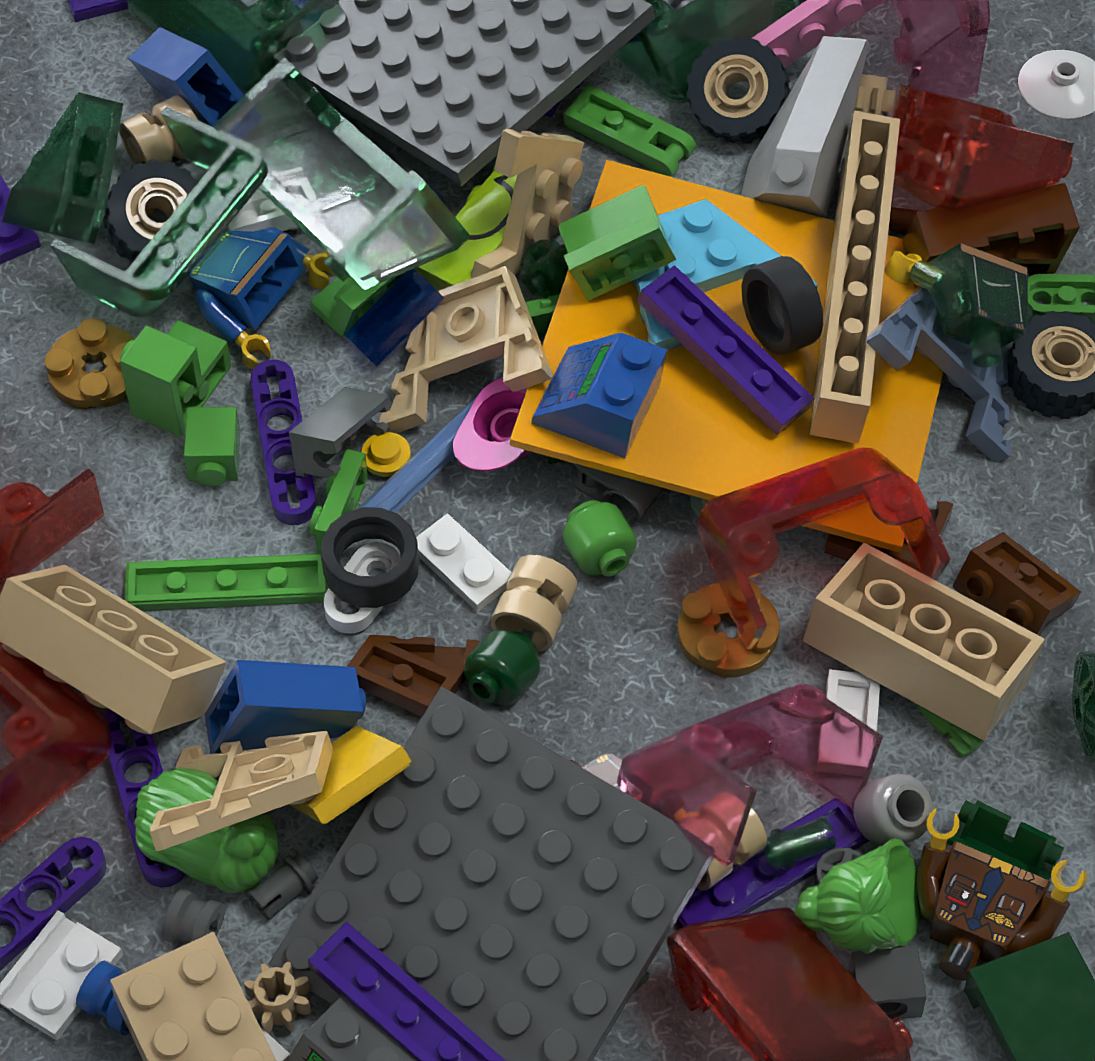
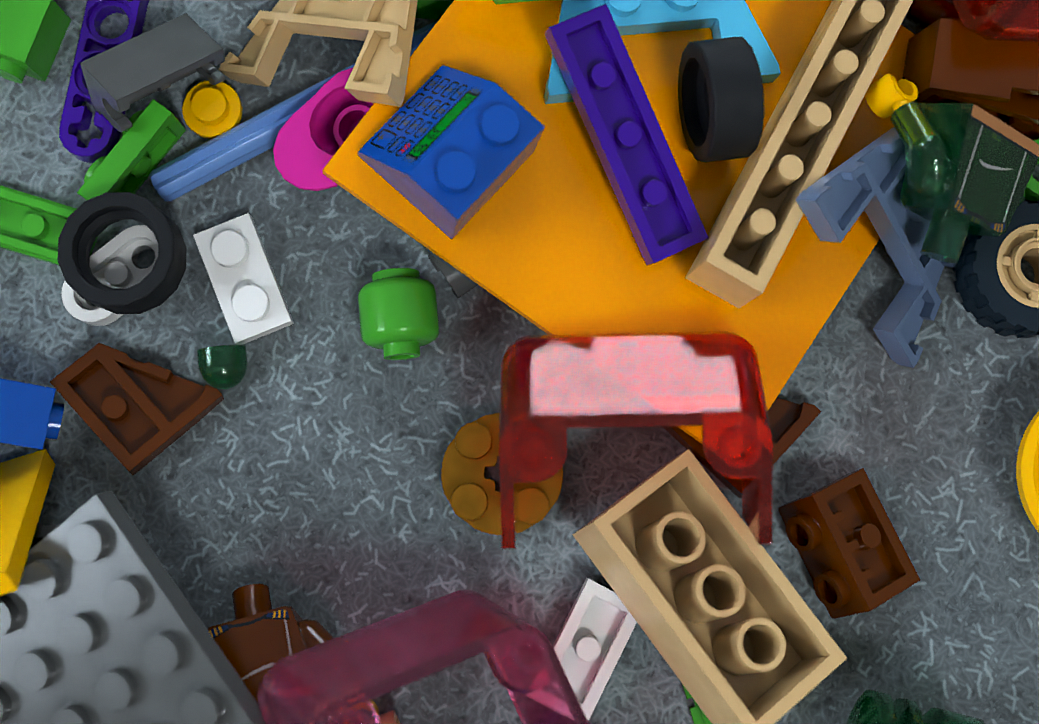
camera: 20 degrees right, 25 degrees up
(472, 620) = (222, 365): none -> clear green hinge
(502, 667) = (227, 438): dark green head -> none
(535, 599) = (279, 391): tan wheel -> none

